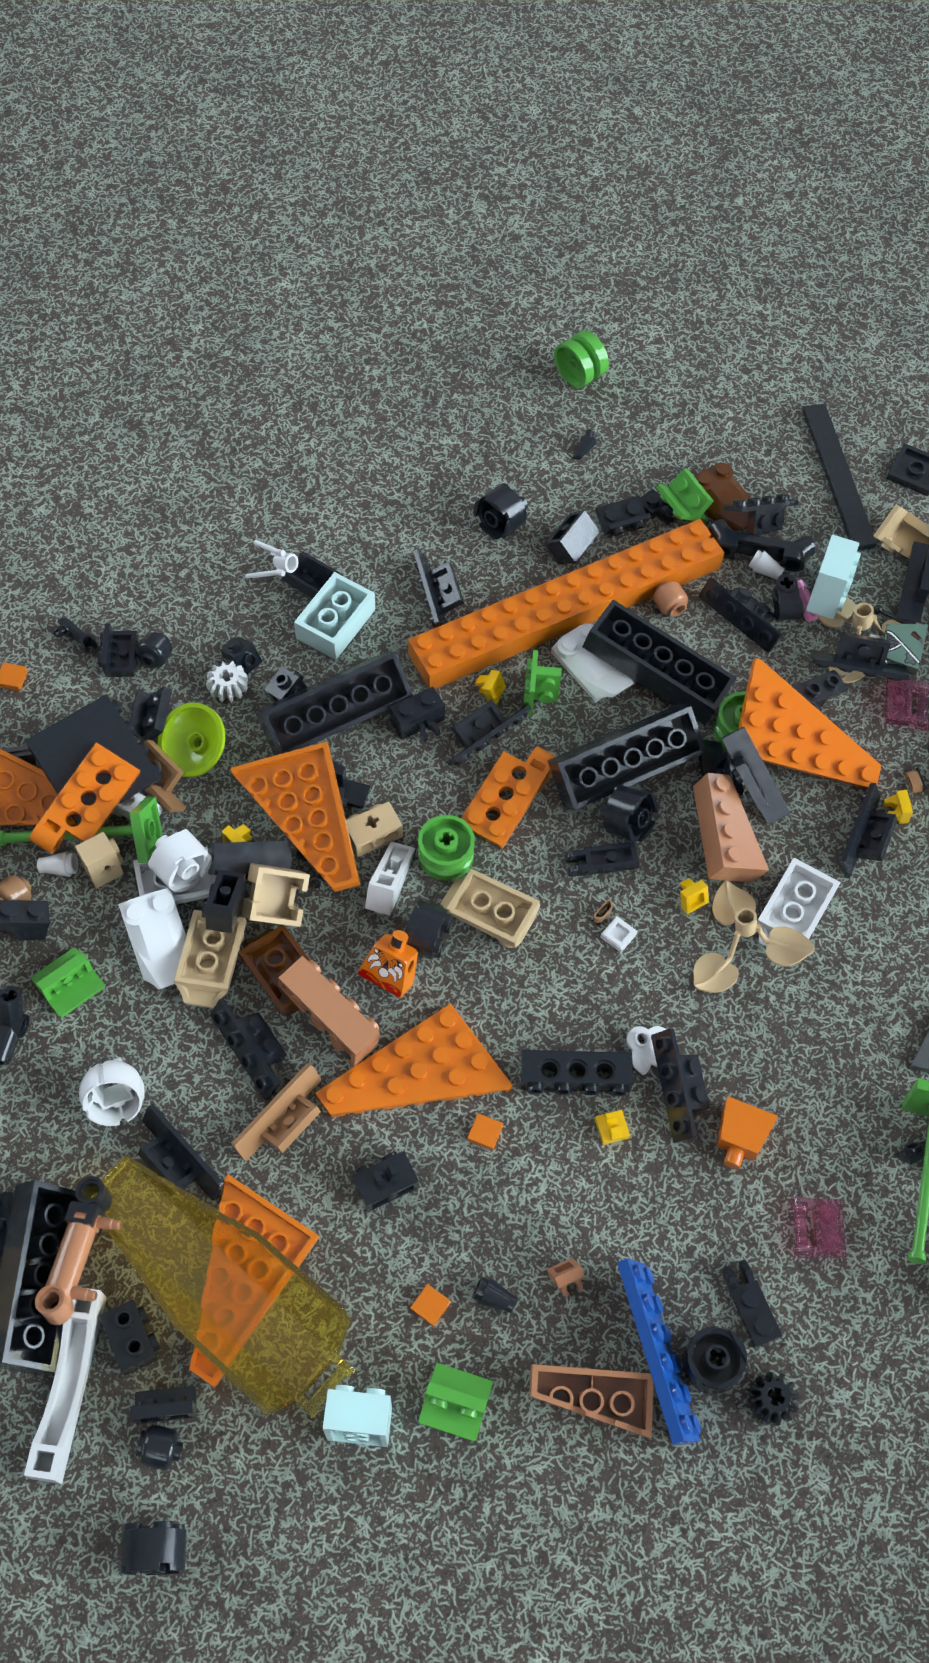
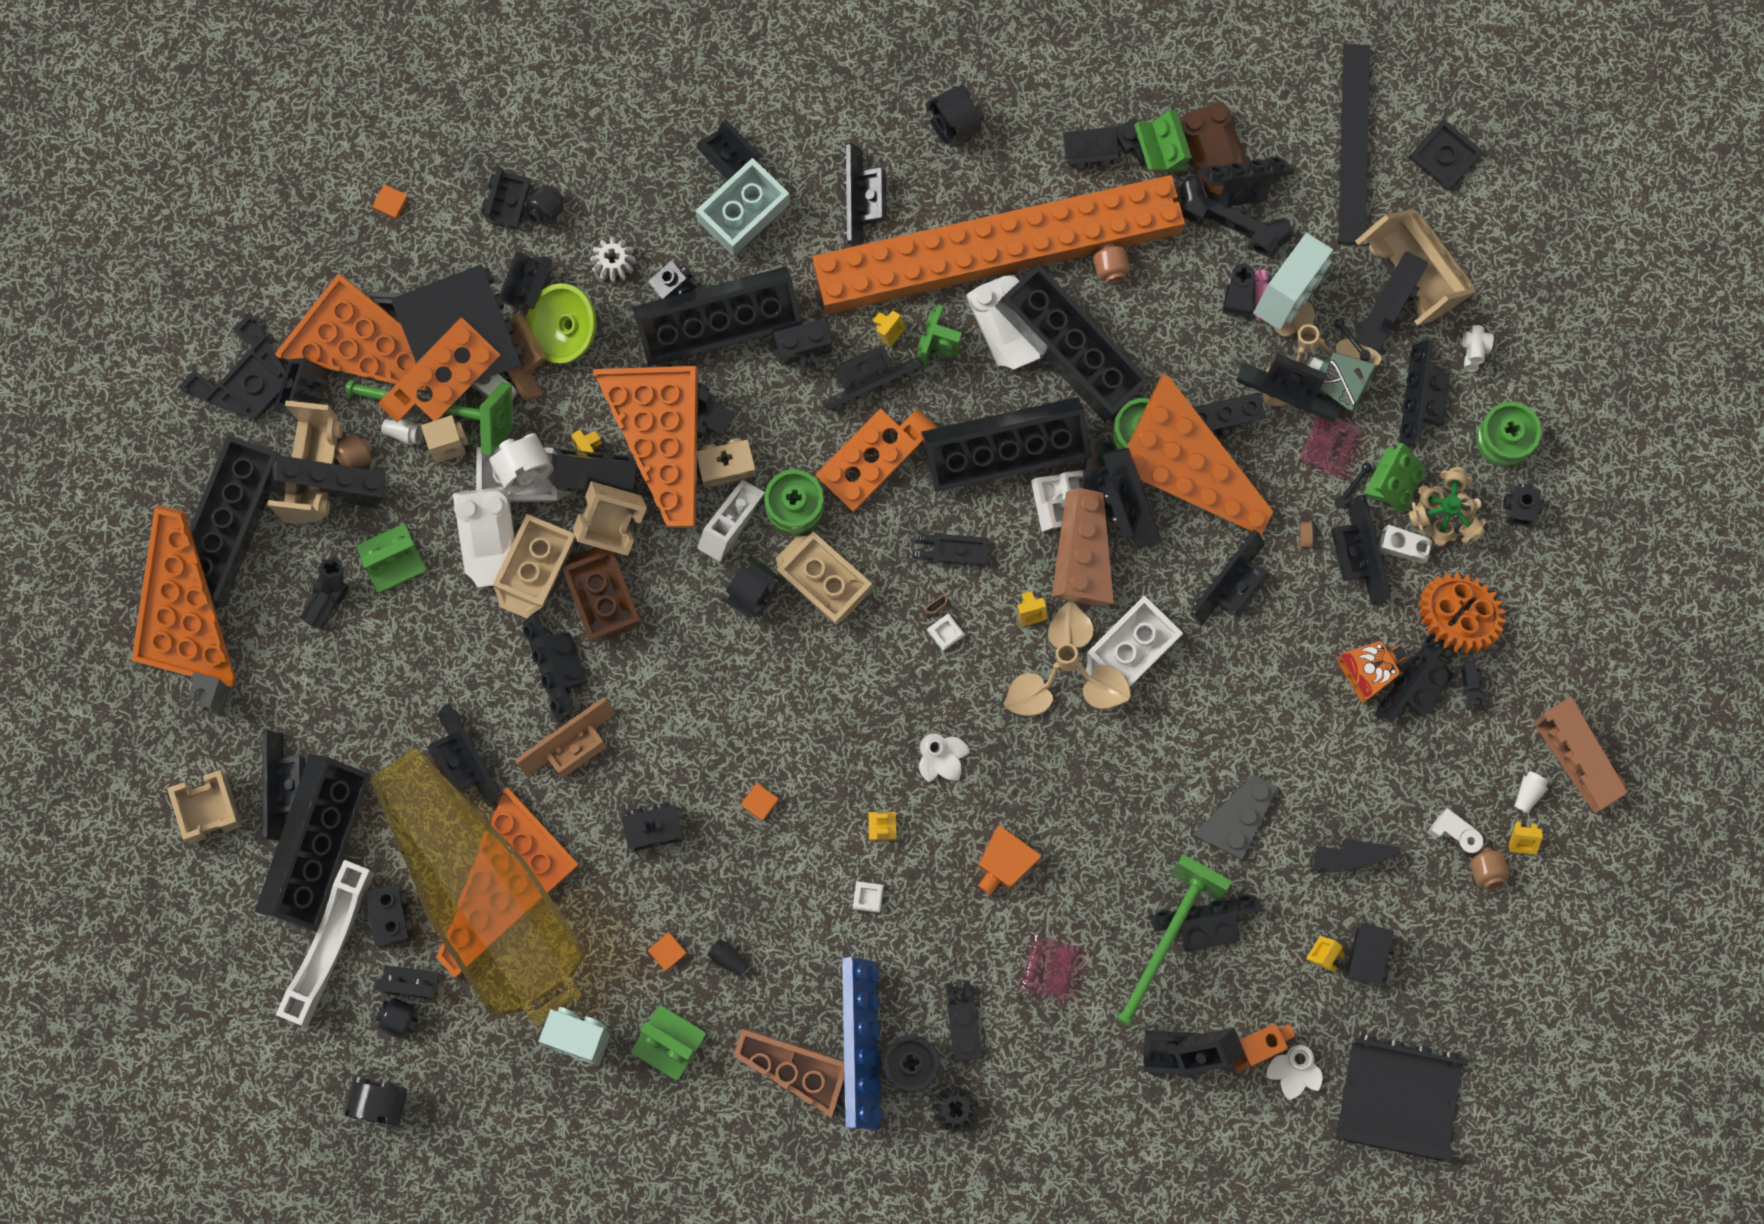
camera: 15 degrees right, 15 degrees up
(71, 630) = (457, 156): black piece -> none
(84, 1222) = (364, 806): nougat piece -> none
(115, 1102) = (413, 684): white piece -> none
(224, 901) = (557, 516): black brick -> none
(242, 653) = (635, 229): black bracket -> none
(282, 561) = (702, 130): white plant -> none
(330, 1010) = (635, 651): nougat wedge -> none
(391, 964) = (708, 616): orange torso -> none
(423, 1065) = (719, 722): orange wing -> none
(566, 1273) = (797, 954): nougat tile -> none
(572, 537) = (1025, 165): brick -> none
(585, 445) = (1077, 42): black bar -> none
(617, 1064) = (823, 746): black brick -> none
(618, 1200) = (868, 897): none -> white tile
(629, 813) = (990, 508): black brick -> none
(680, 797) = (1050, 497): none -> white slope
(680, 1083) = (960, 801): black bracket -> none
(743, 612) = (1189, 296): black bracket -> none
(766, 565) = (1231, 243): white cone -> none
(901, 804) = (1279, 556): yellow tile -> none

